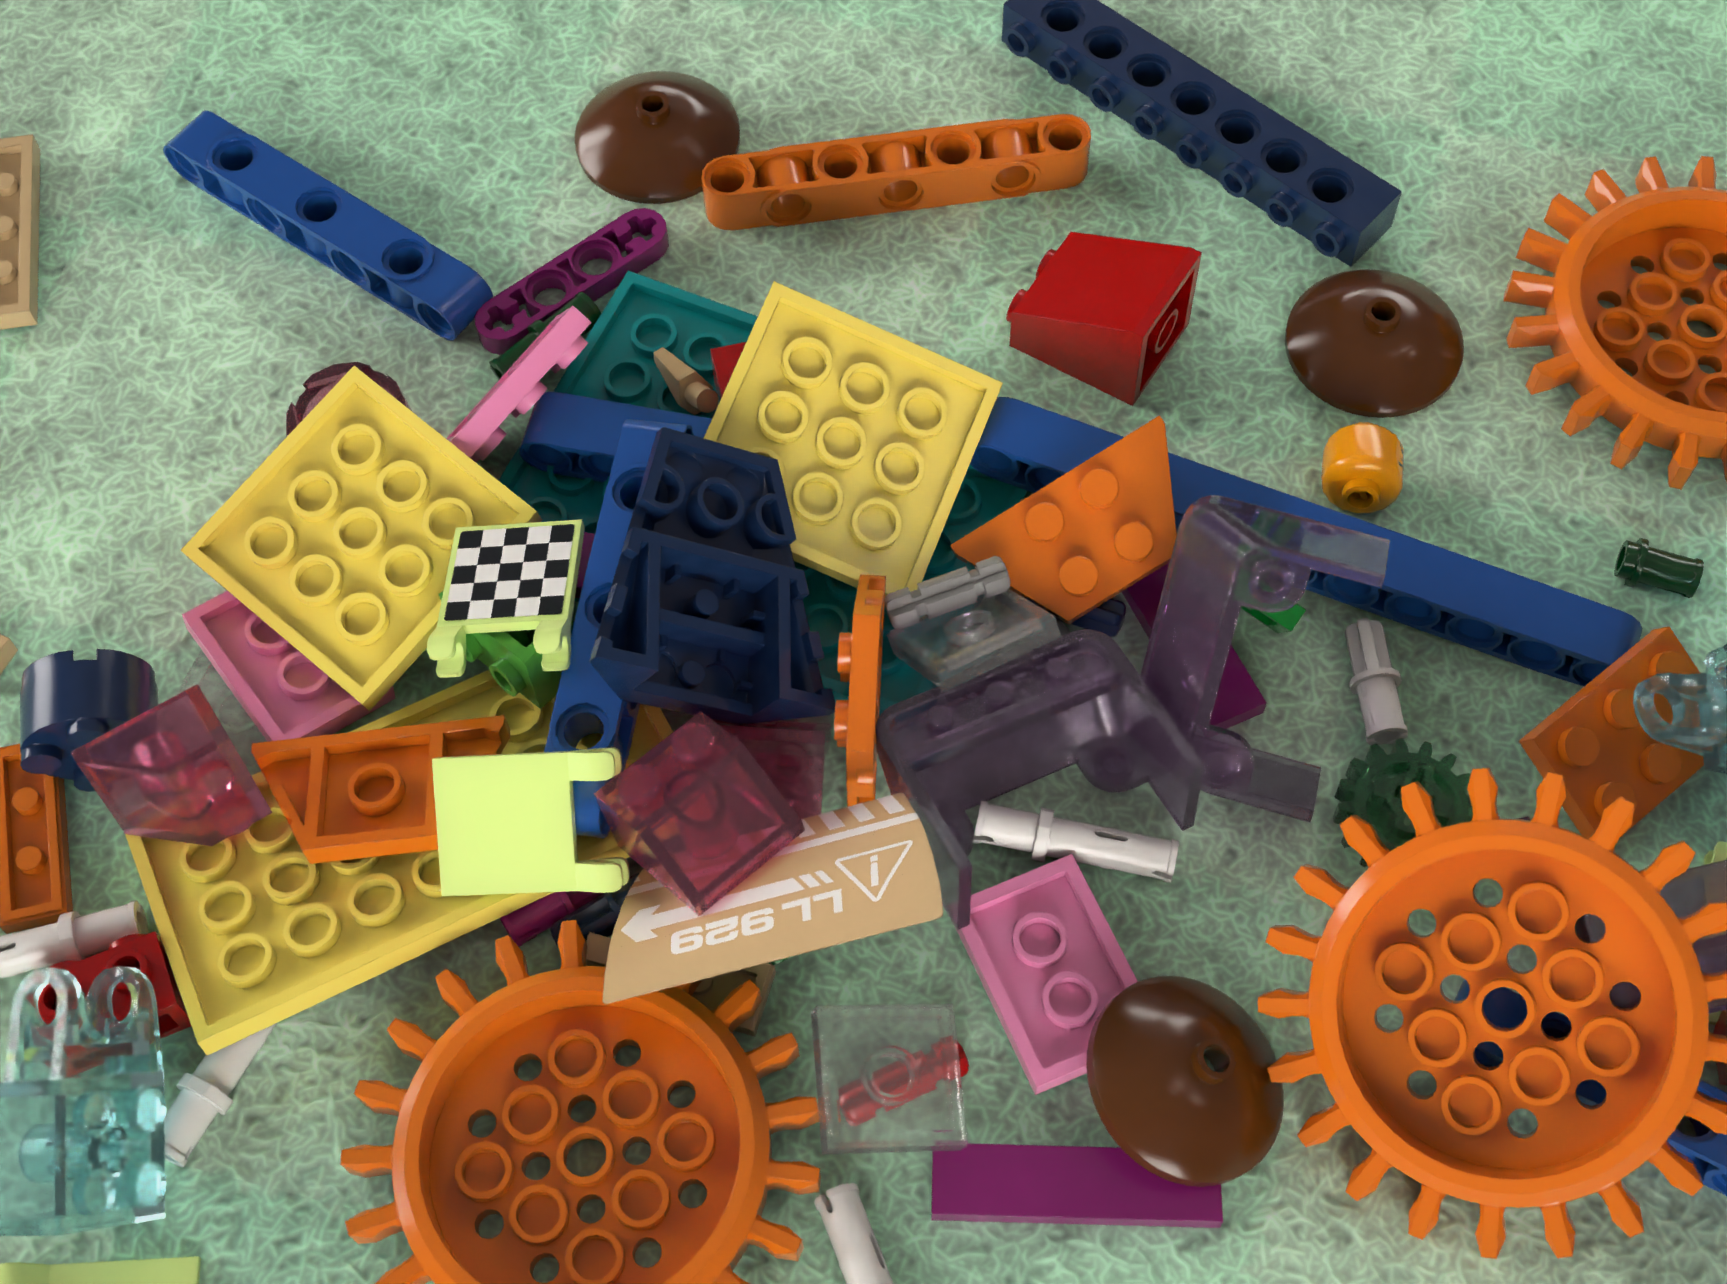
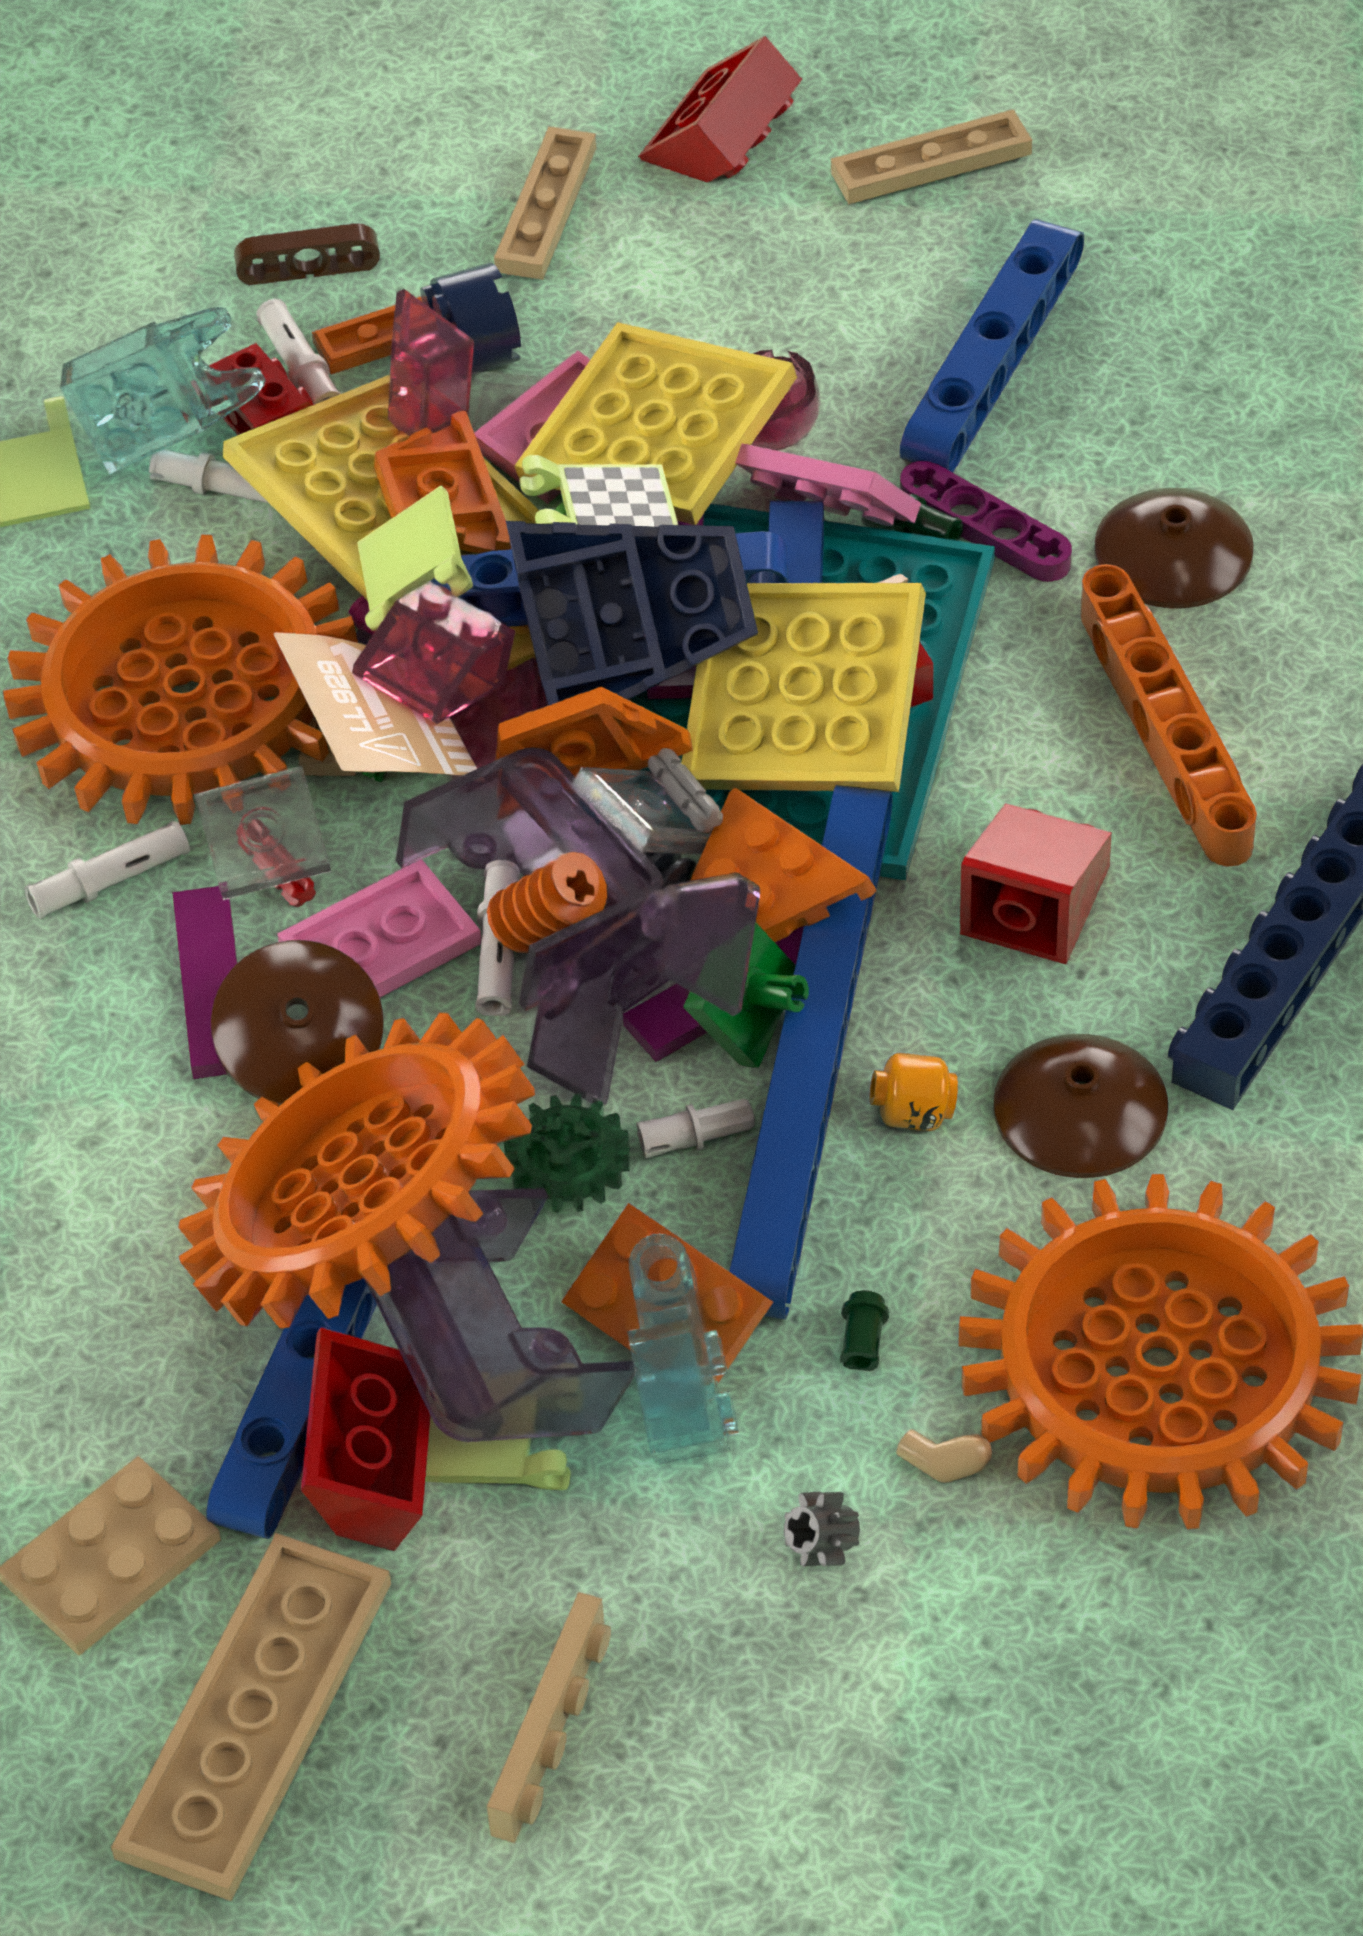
camera: 80 degrees right, 10 degrees down
(1090, 761) = (547, 901): none -> orange piece

